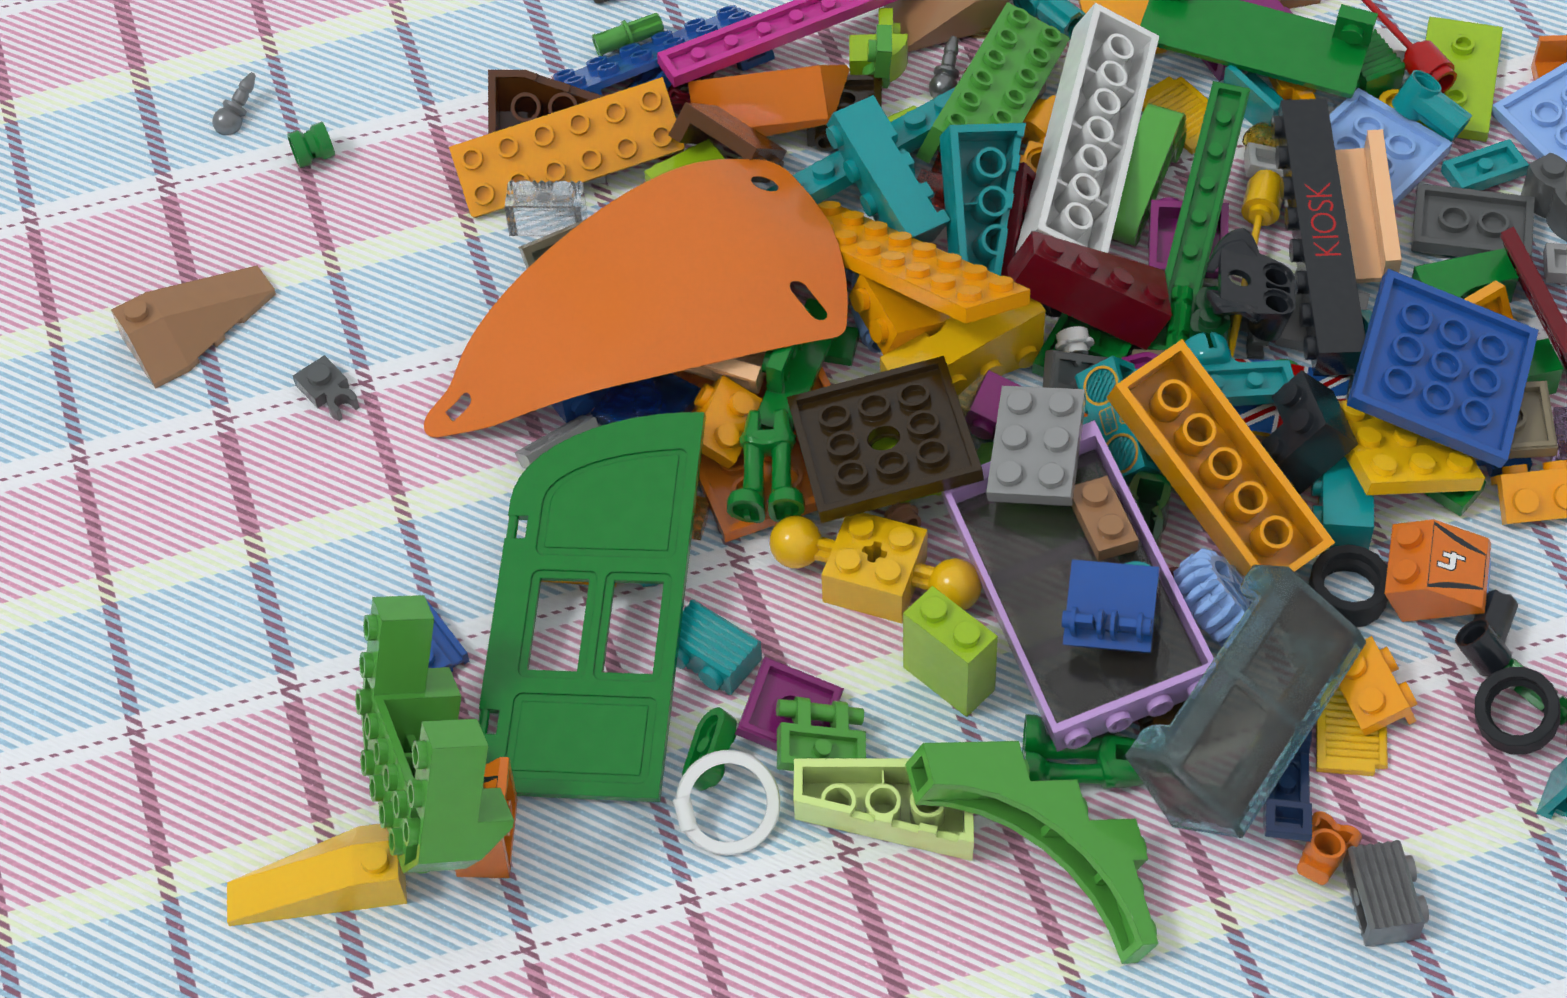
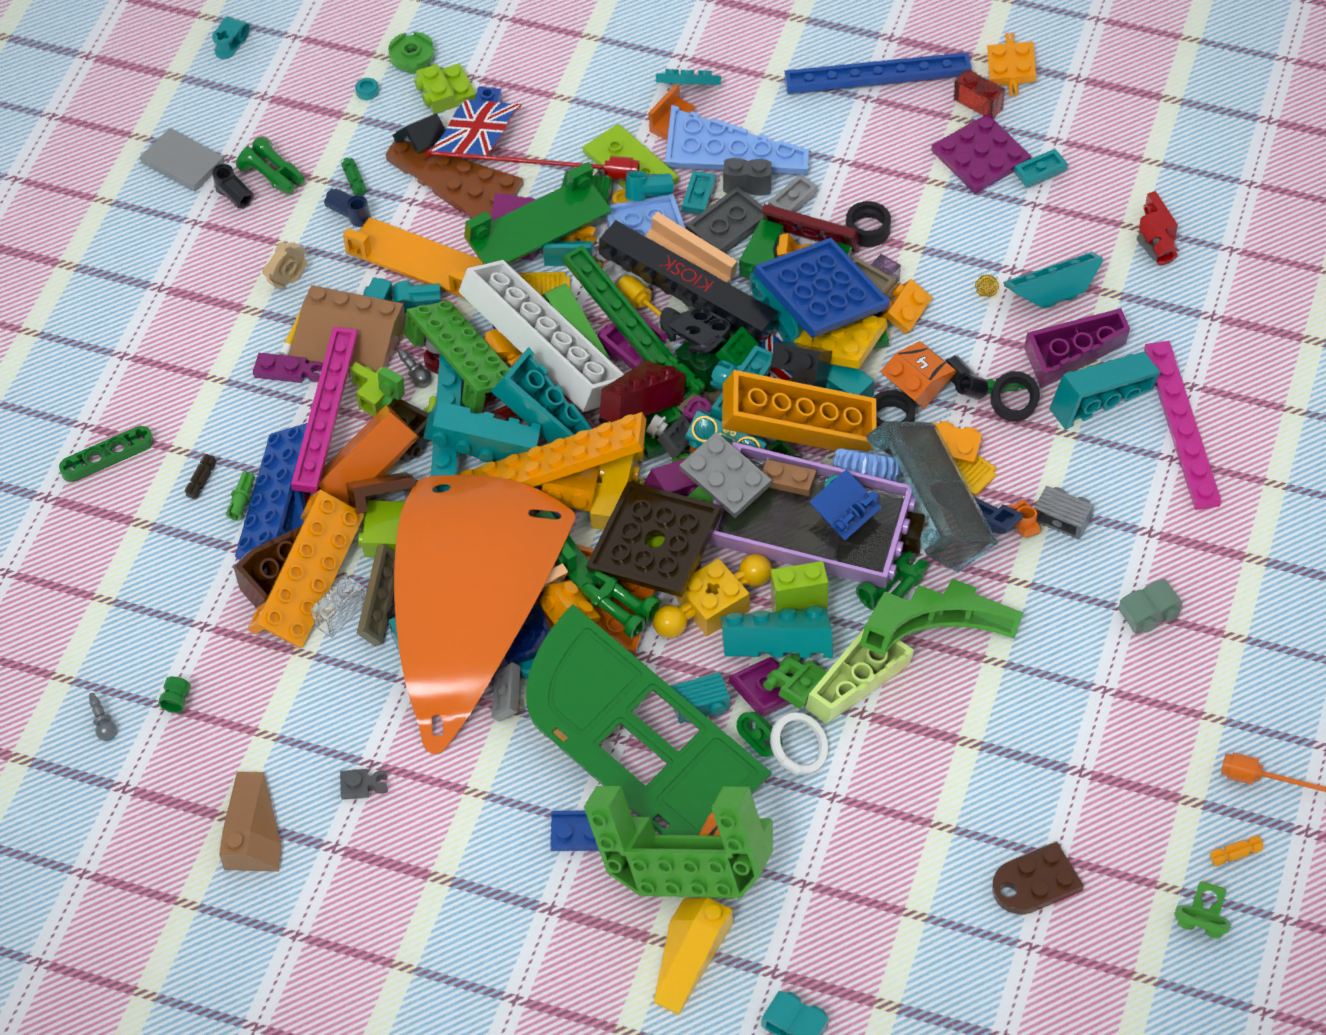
camera: 55 degrees left, 0 degrees up
(876, 672) = (778, 633): none -> teal wedge
(1267, 343) = (737, 347): none -> green plate

